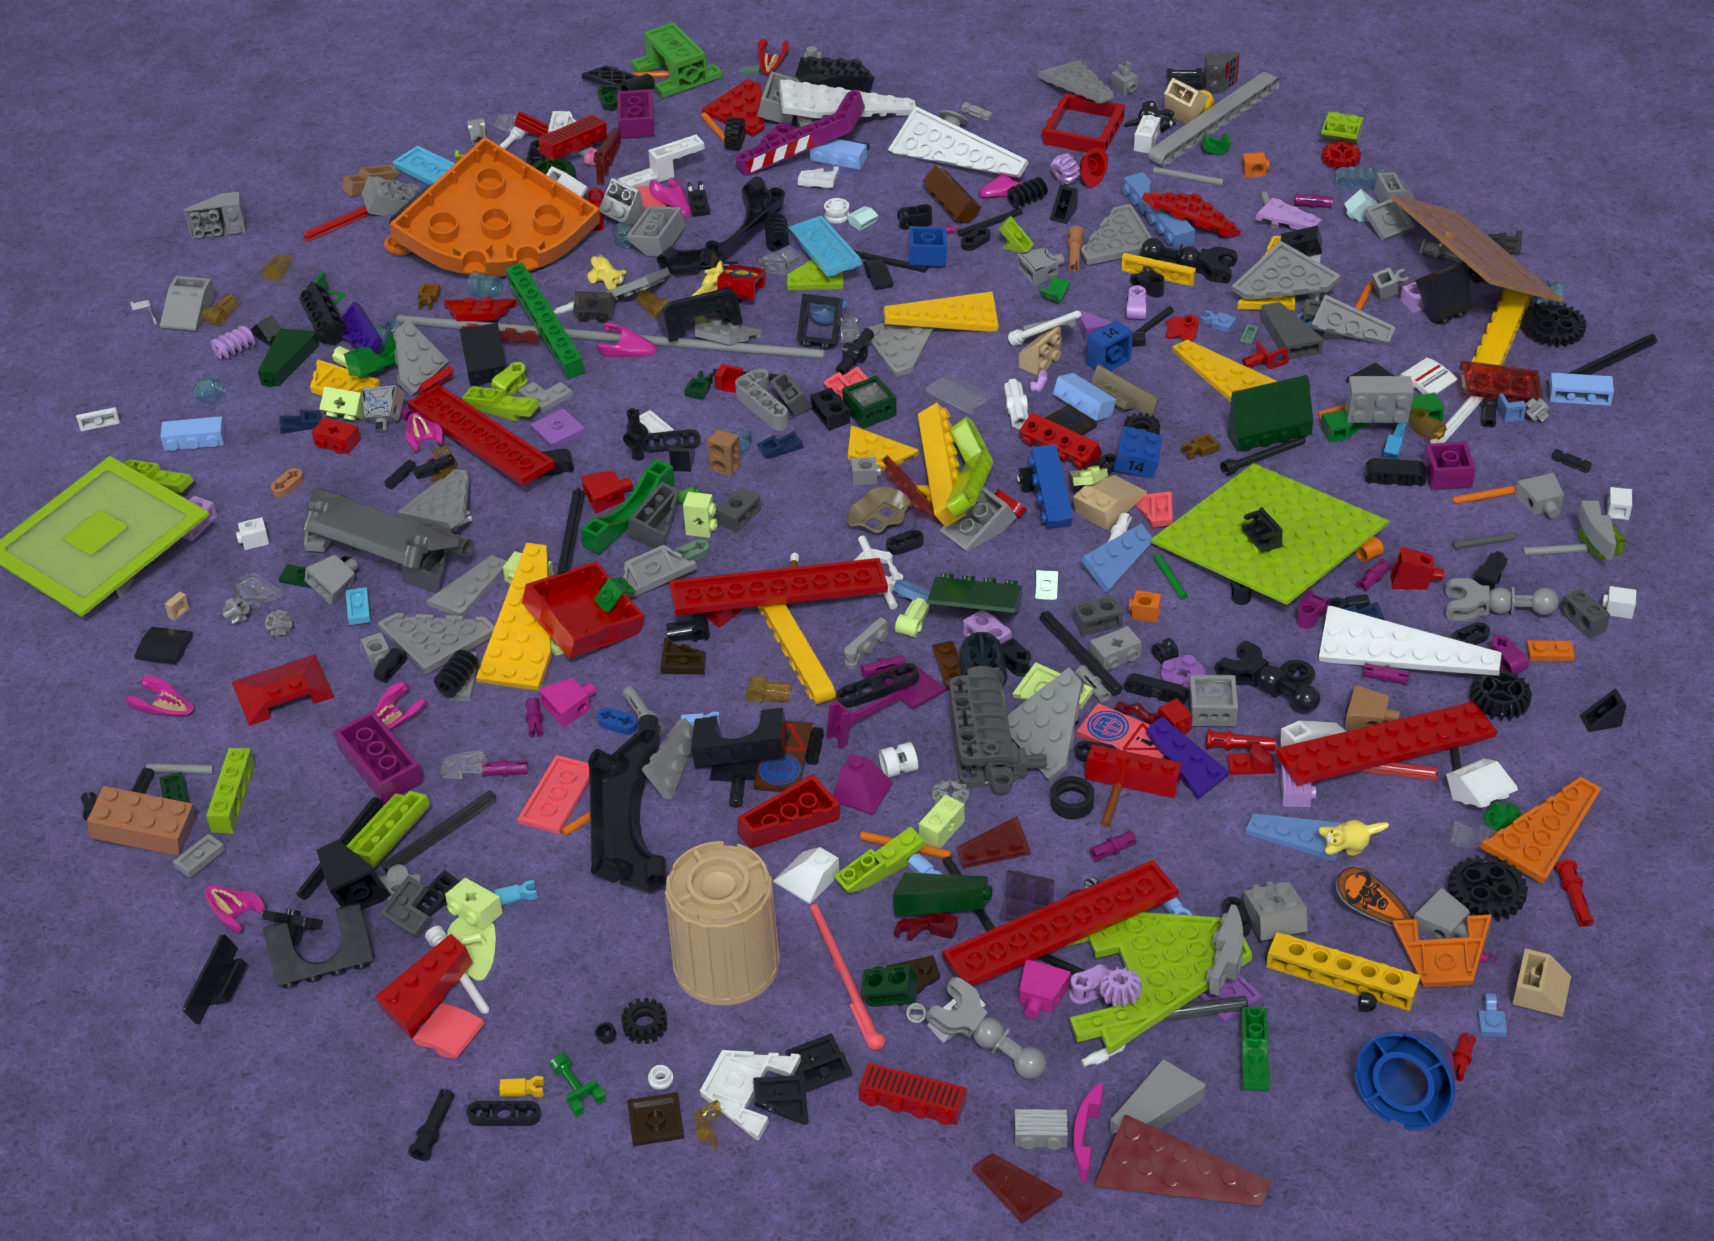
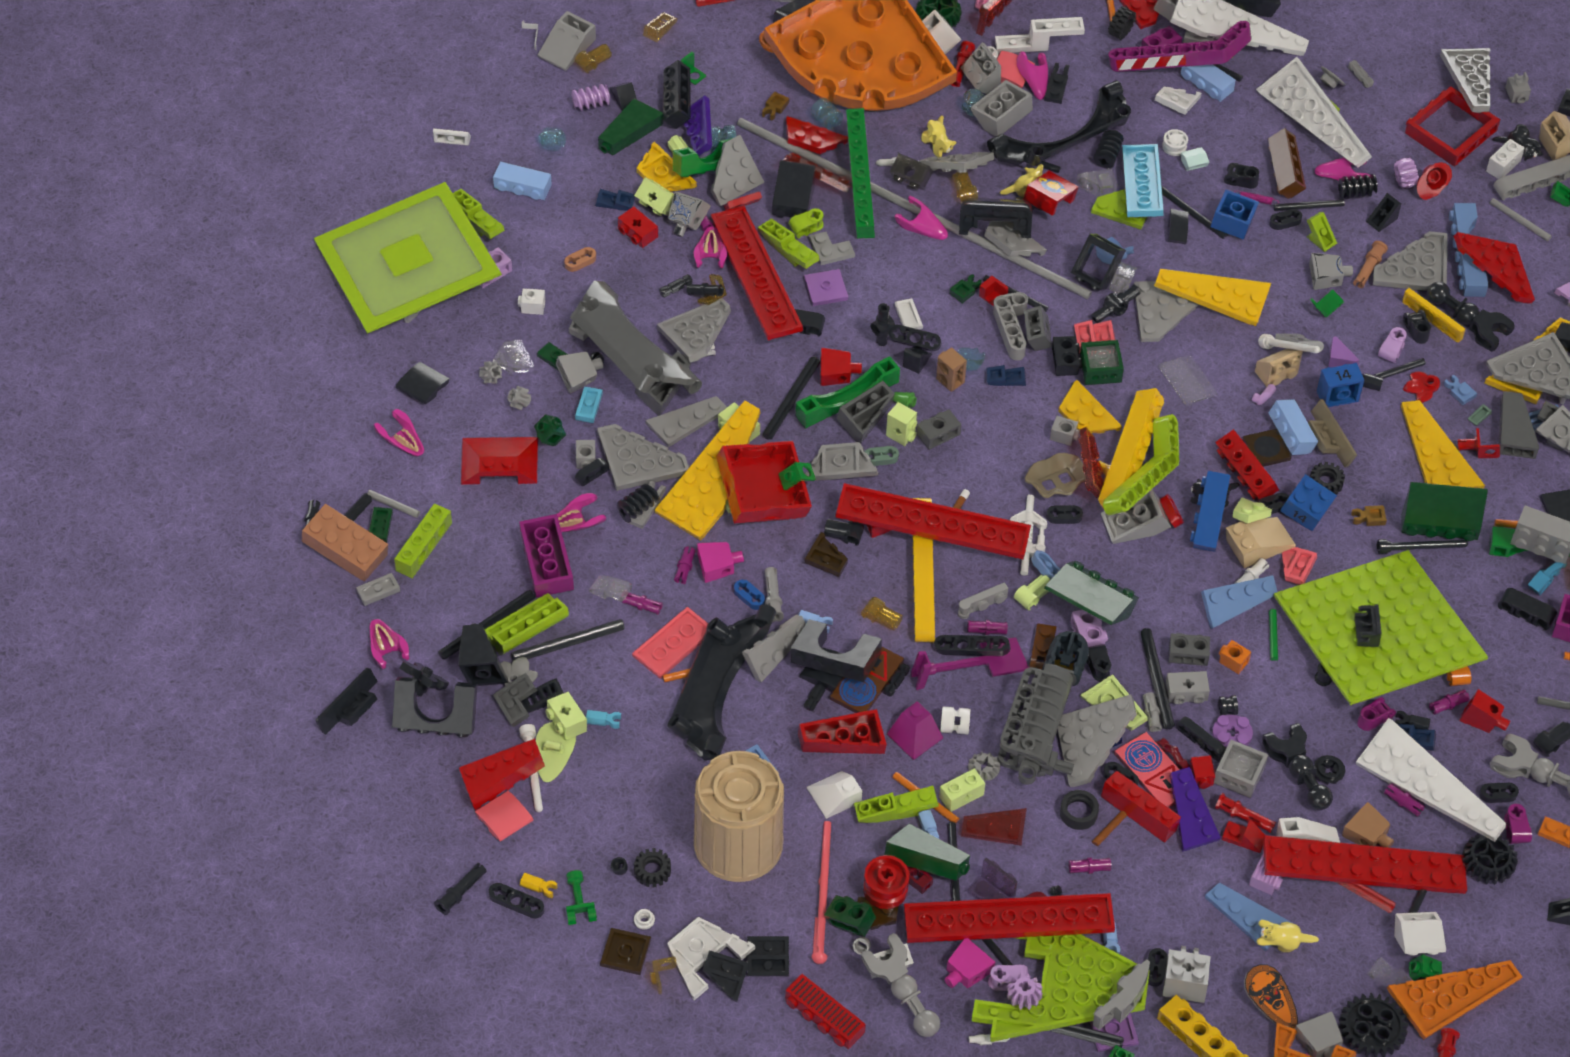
camera: 20 degrees right, 10 degrees up
(177, 606) = (446, 349): tan plate -> none
(326, 640) = (550, 430): none -> dark green brick
(912, 935) = (886, 882): none -> red wheel
(1016, 403) = (1230, 410): white piece -> none
(1046, 585) = (1162, 602): bracket -> none

